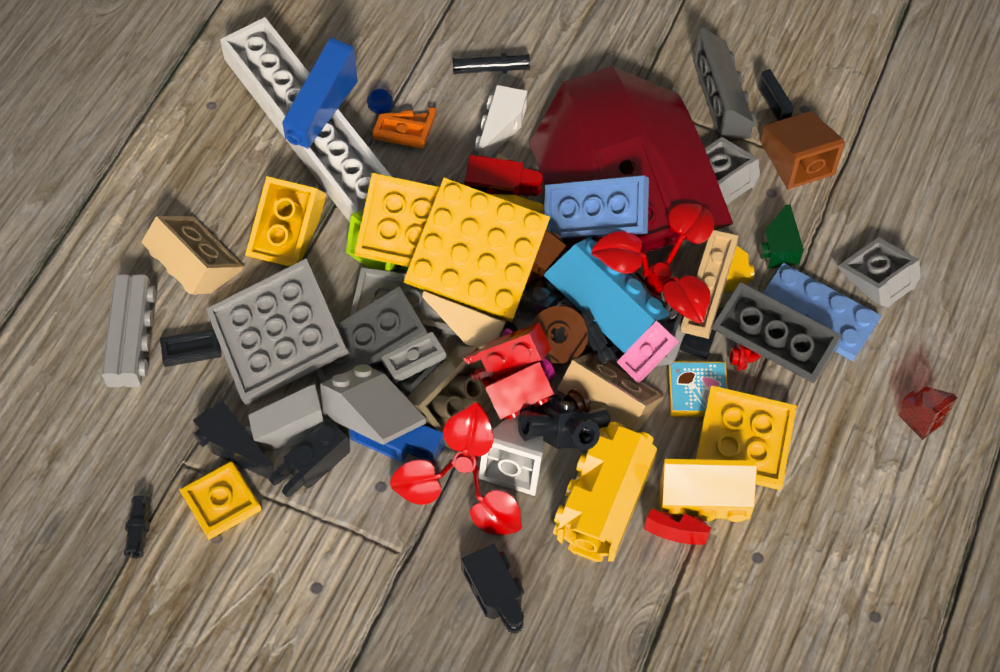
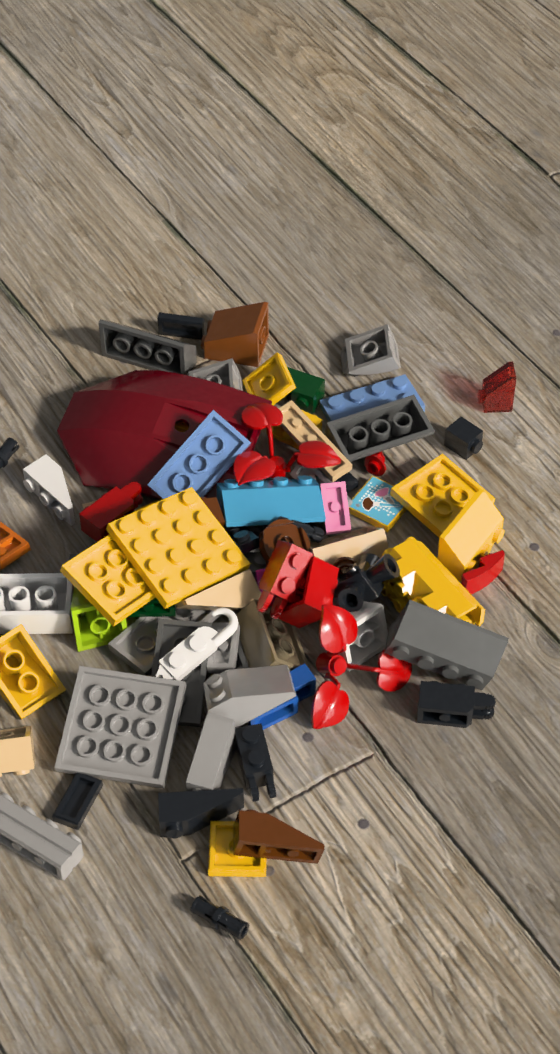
camera: 55 degrees left, 10 degrees down
(231, 510) = (270, 838): none -> reddish brown slope
(388, 335) = (196, 648): none -> white plate
(539, 540) = (445, 645): none -> dark grey slope
(762, 208) = (270, 380): none -> yellow tile
(839, 414) = (463, 438): none -> black brick

